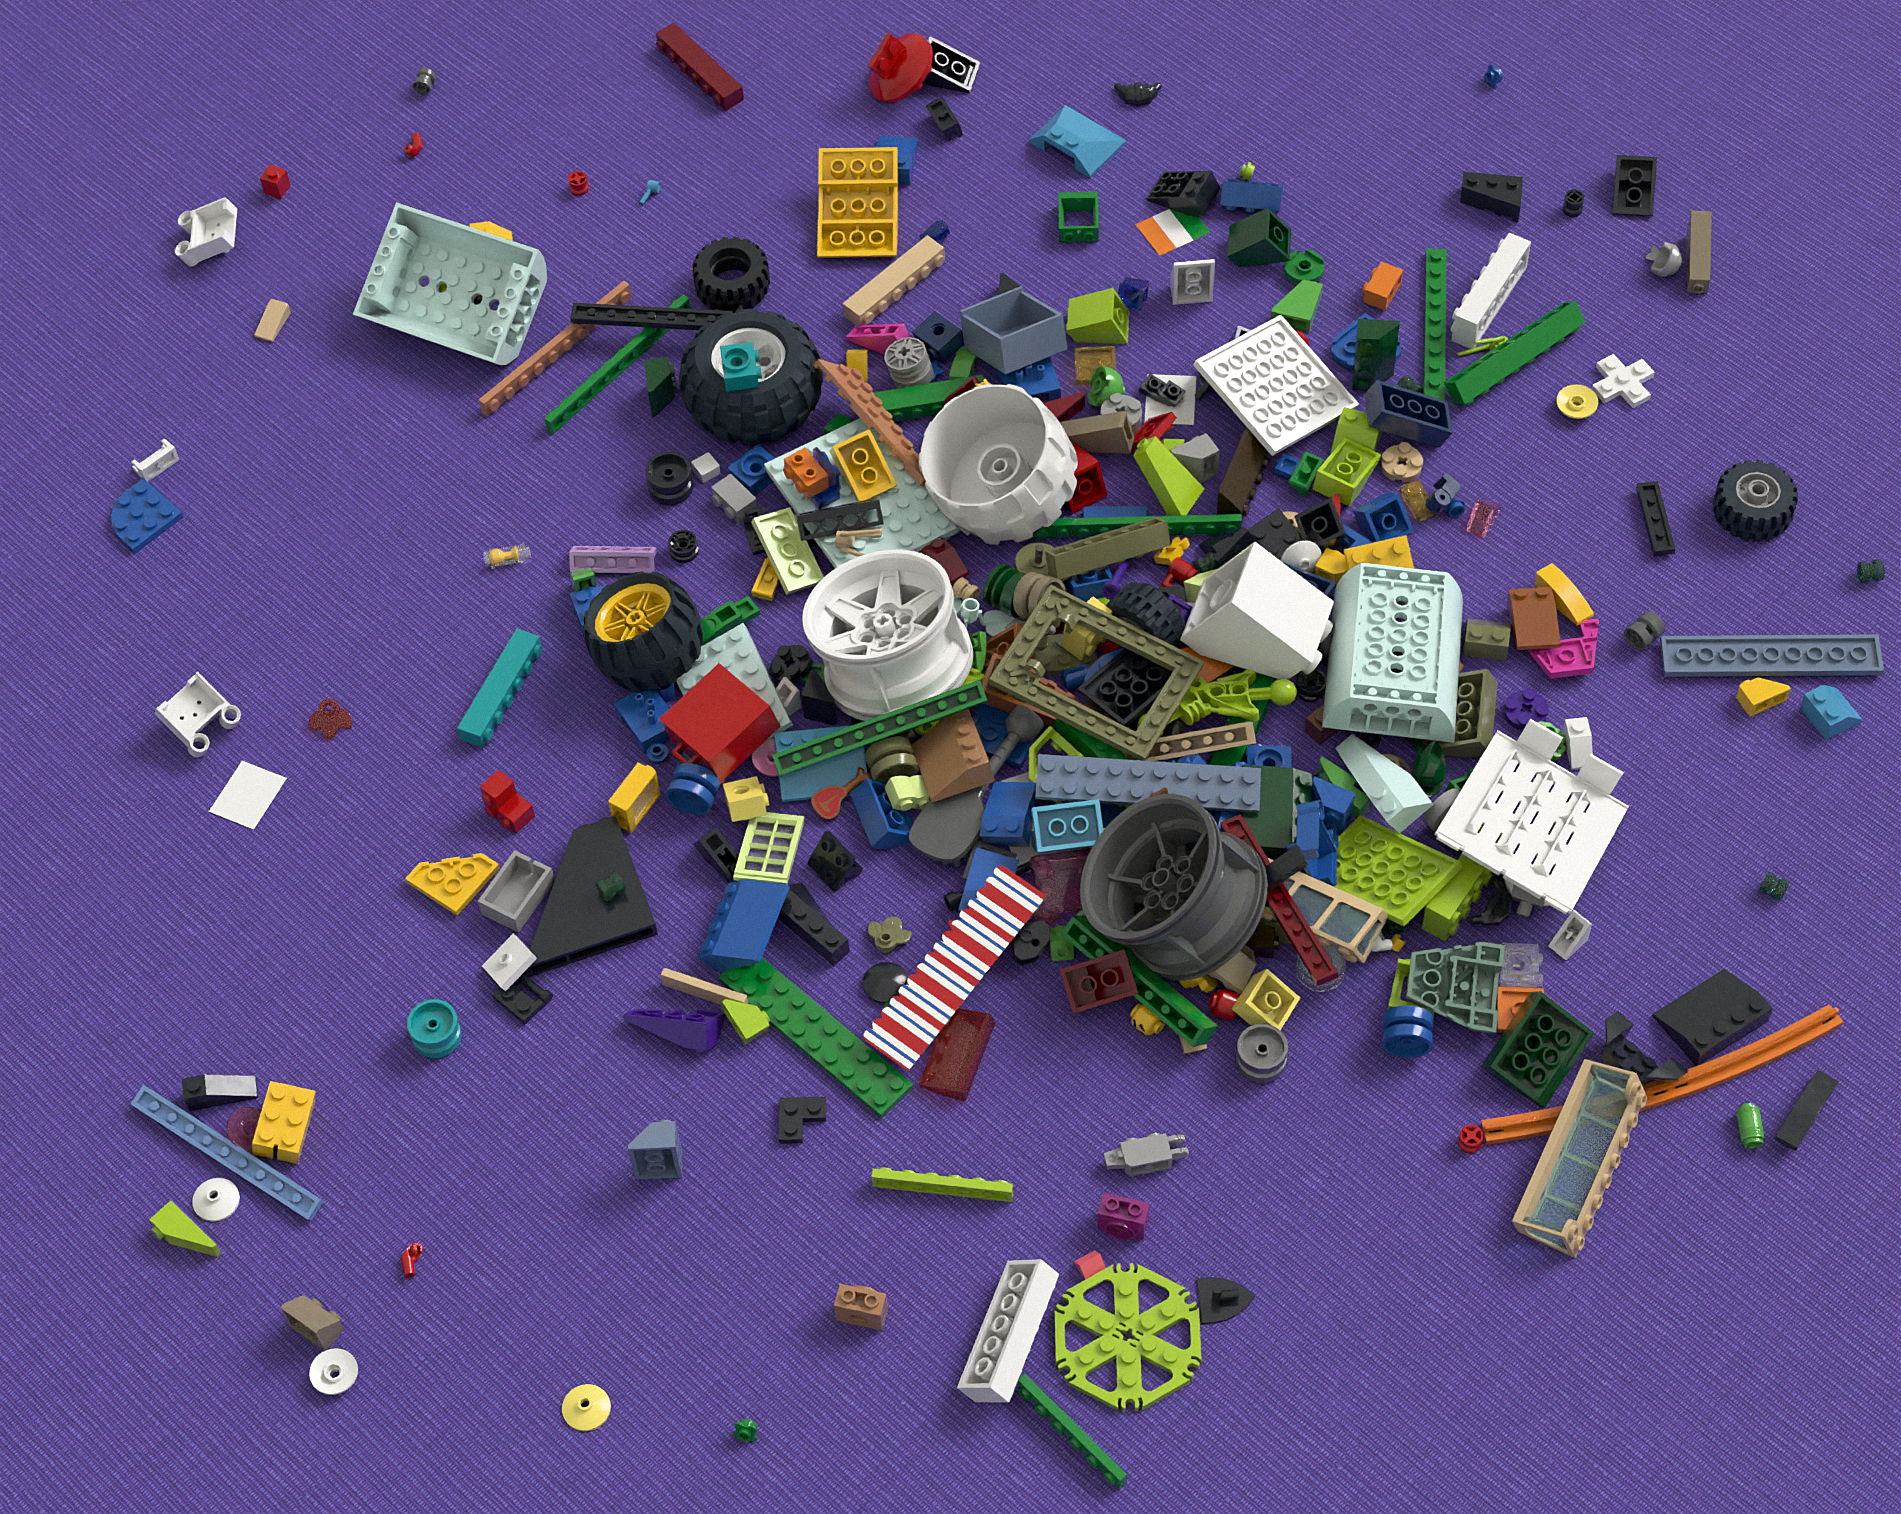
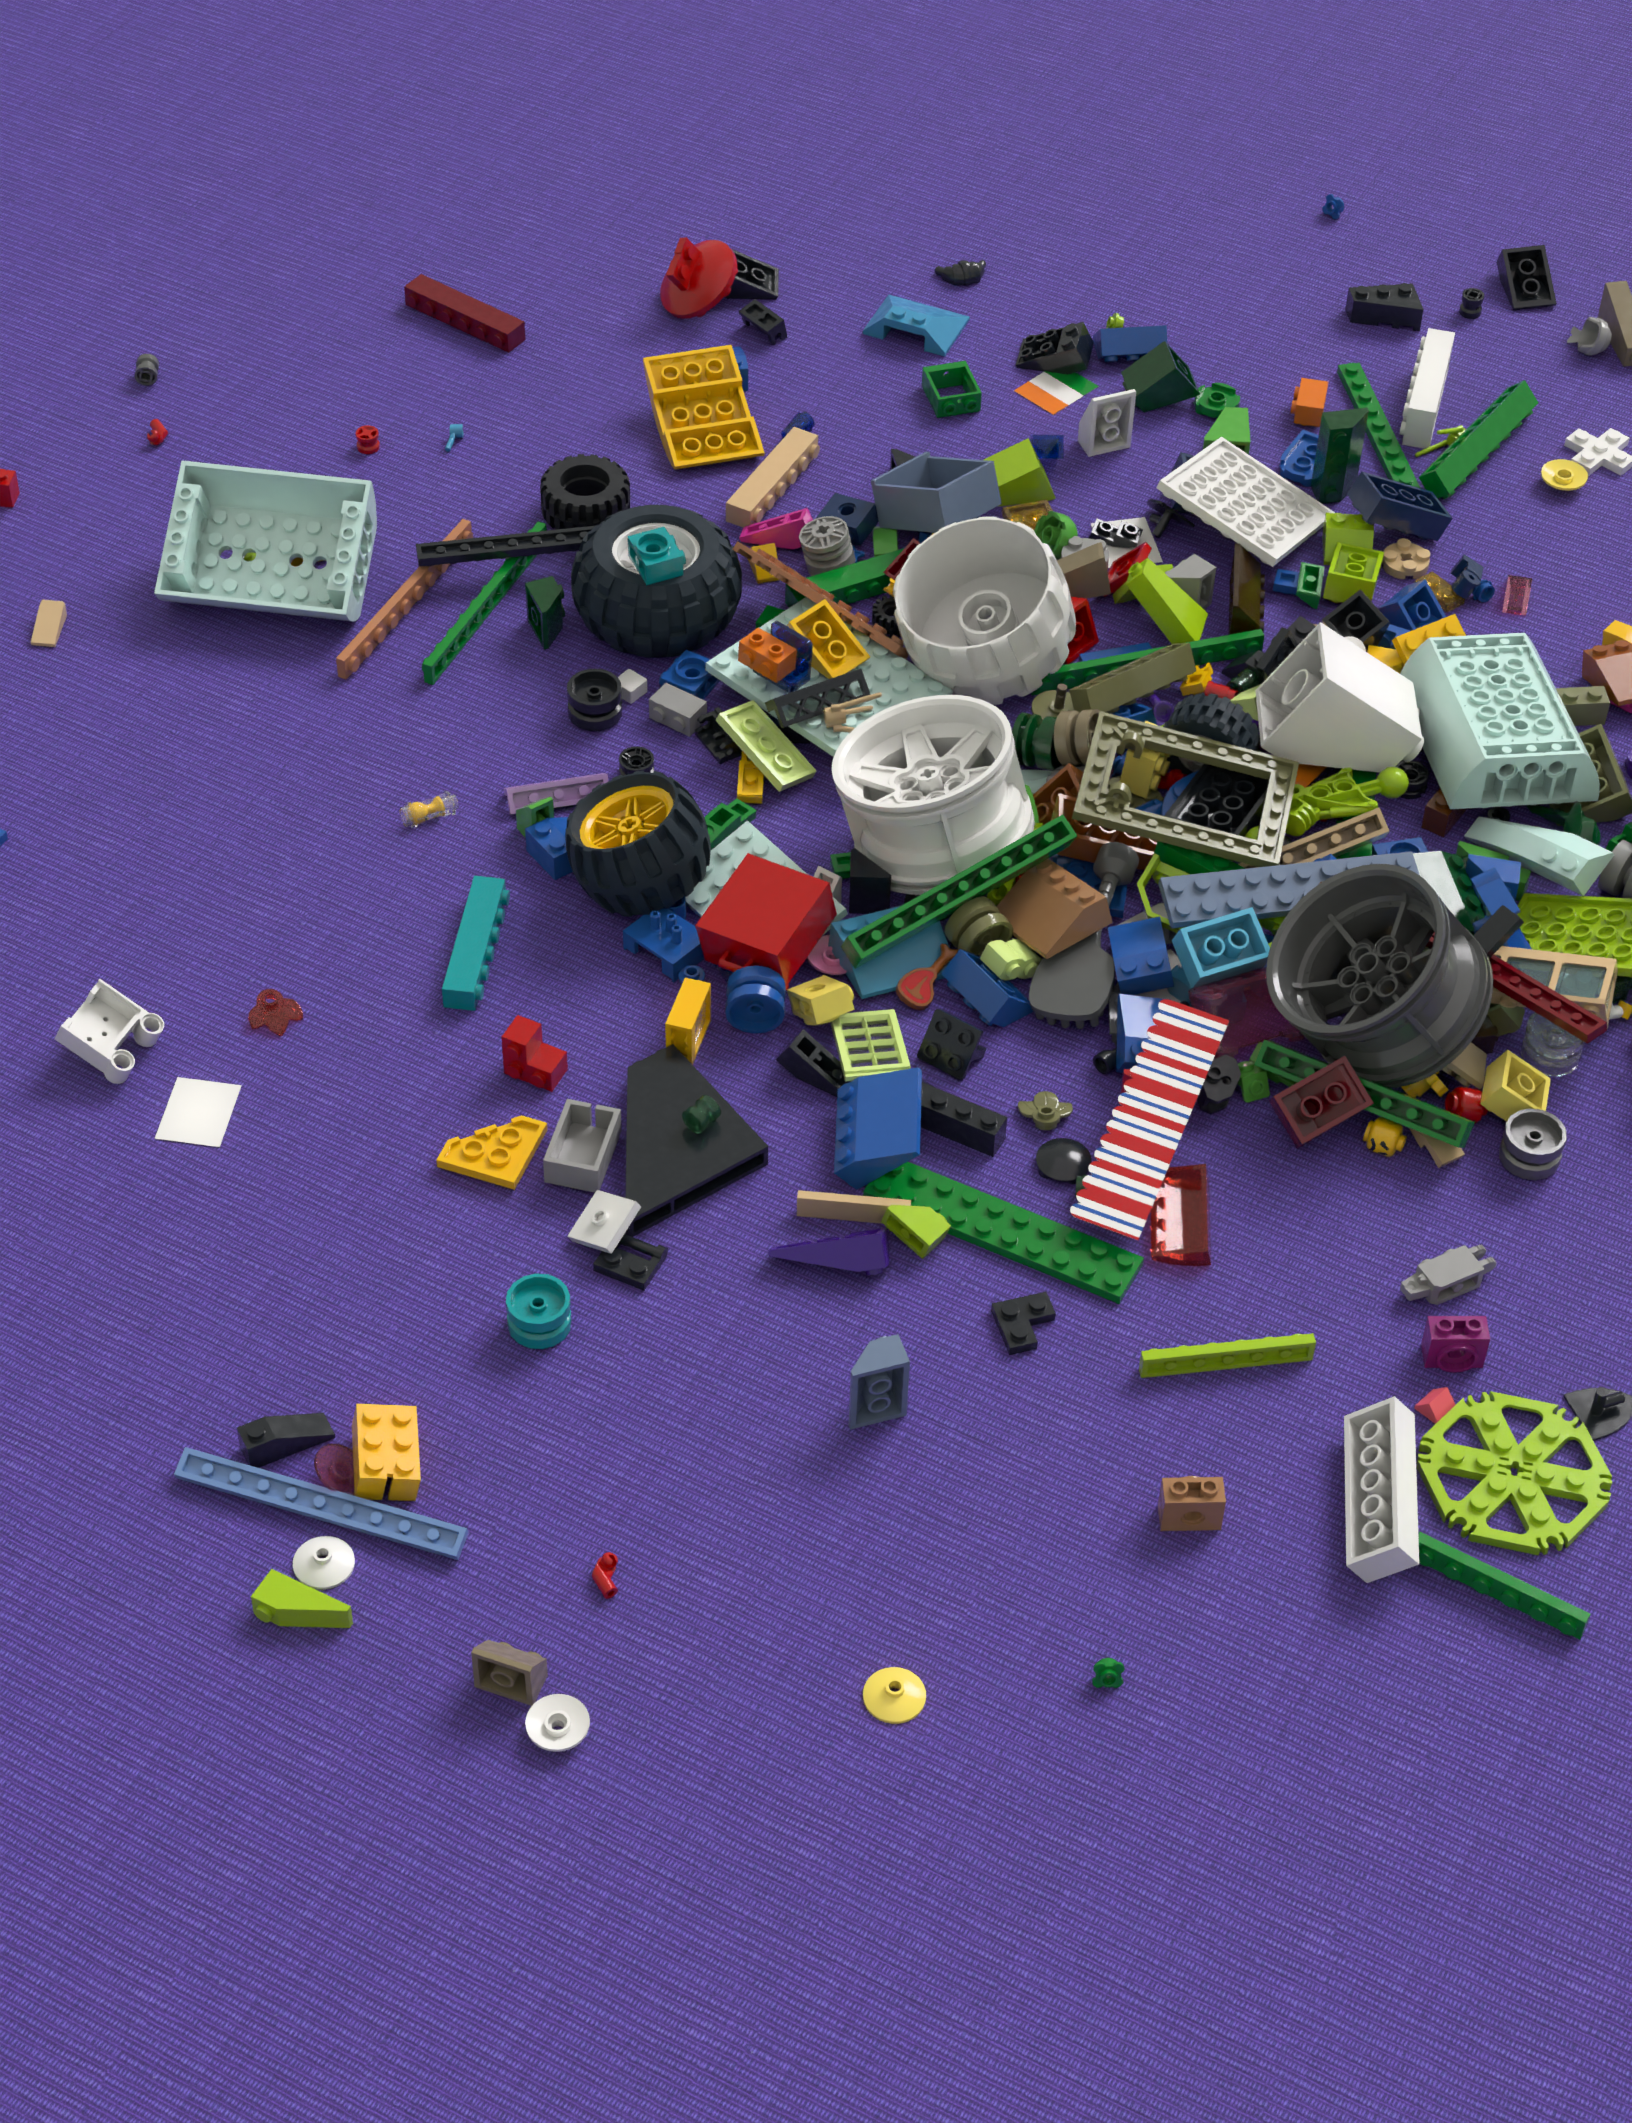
camera: 20 degrees left, 10 degrees down
(788, 655) = (822, 847): black plate -> none

